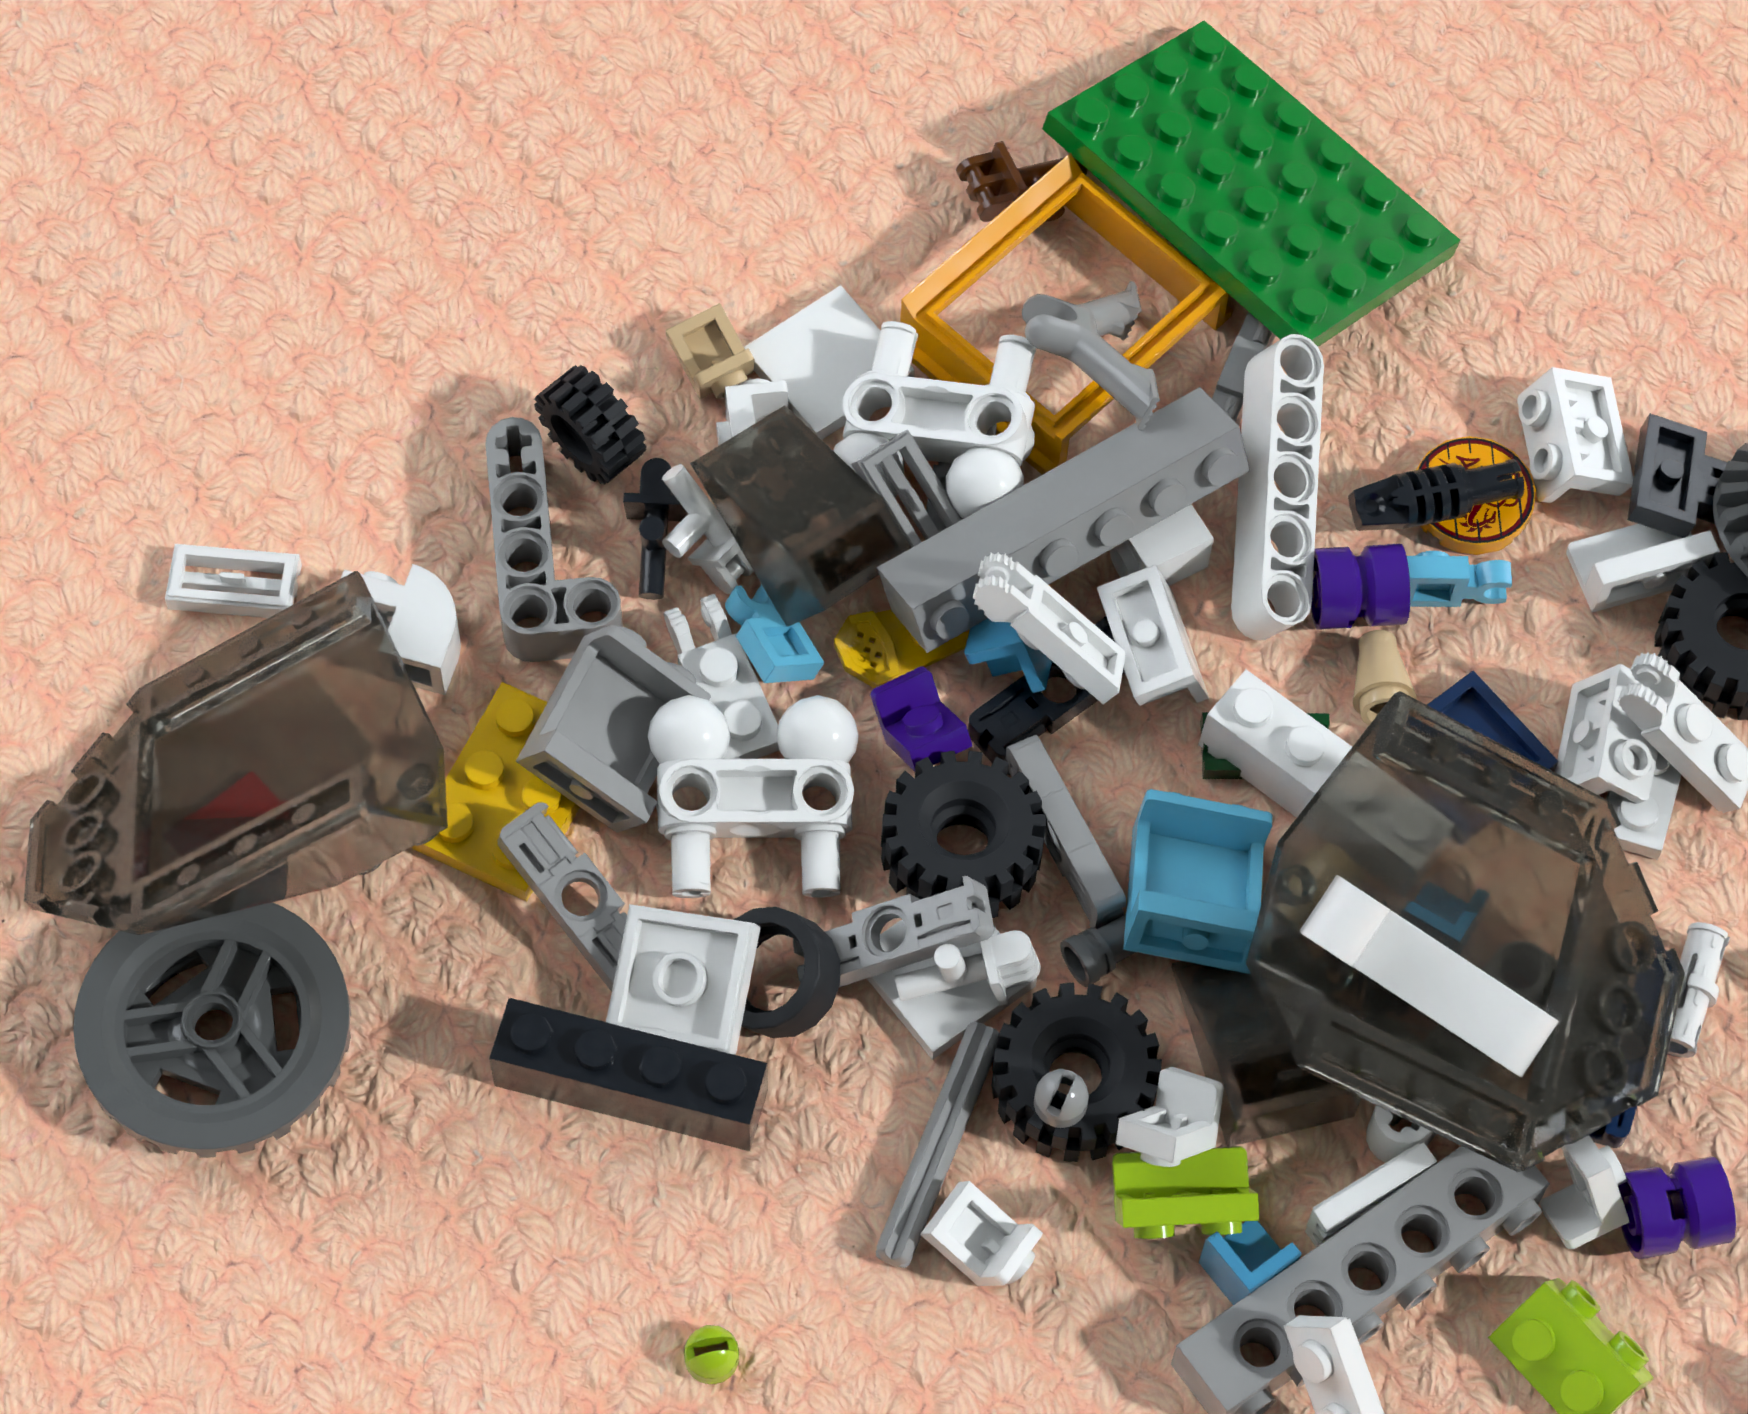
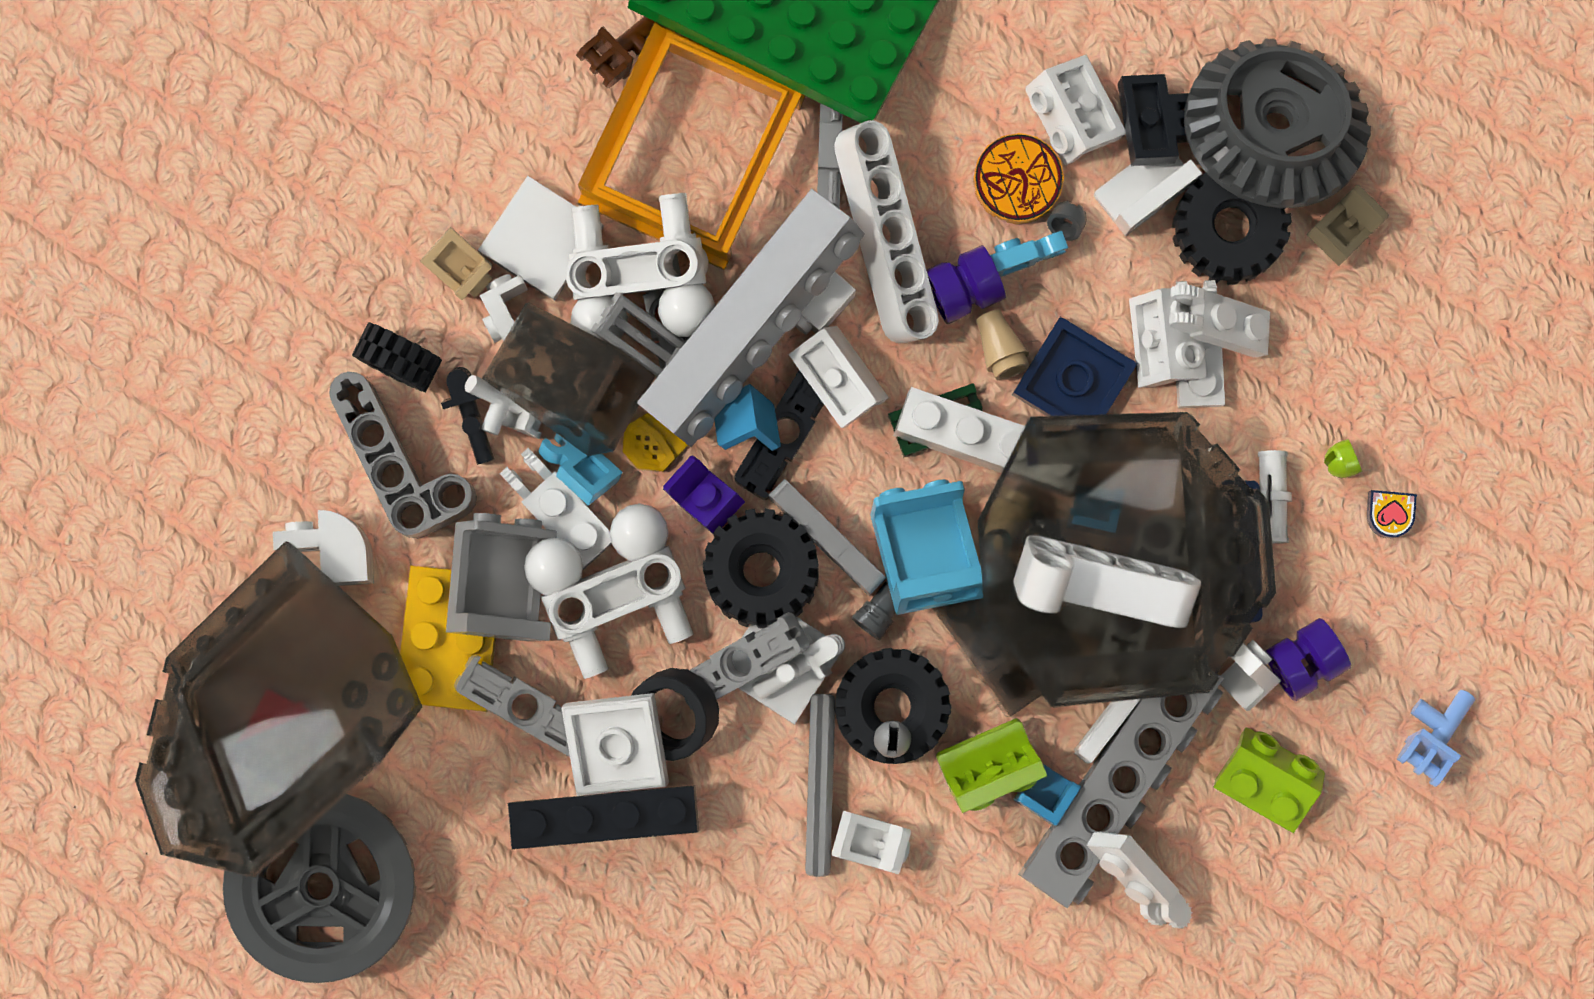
camera: 20 degrees left, 20 degrees up
(281, 591) = (234, 546): white tile -> none
(712, 1366) = (720, 969): lime hinge -> none
(1050, 625) = (771, 410): white hinge -> none
(1076, 335) = (709, 177): light grey piece -> none
(1179, 1123) = (971, 727): white bracket -> none
(1432, 495) = (993, 198): black hinge -> none
(1517, 552) = (1063, 211): none -> dark grey hinge

